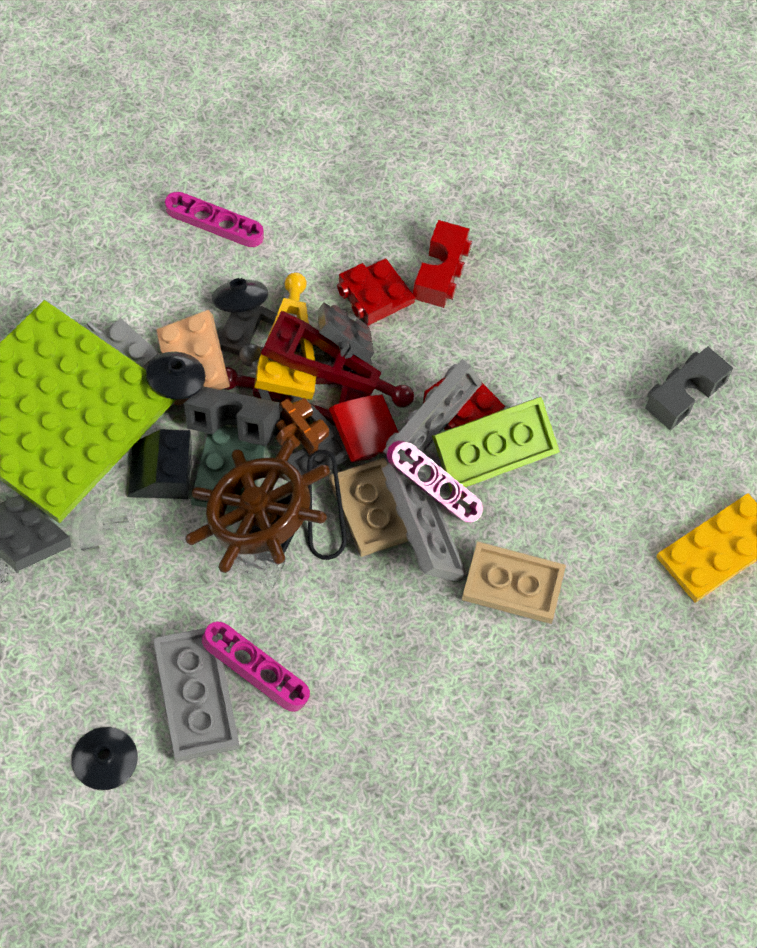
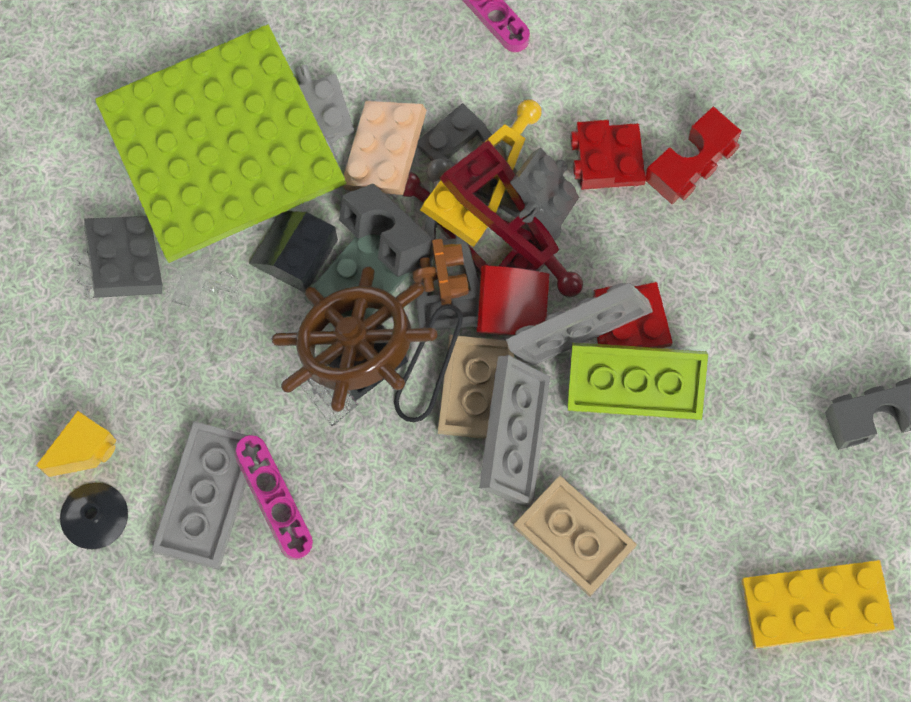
camera: 35 degrees right, 10 degrees up
(62, 706) = (78, 447): none -> yellow slope
(175, 375) = (347, 172): black dish -> none
(240, 295) = (466, 100): black dish -> none
(435, 481) = (546, 394): beam -> none

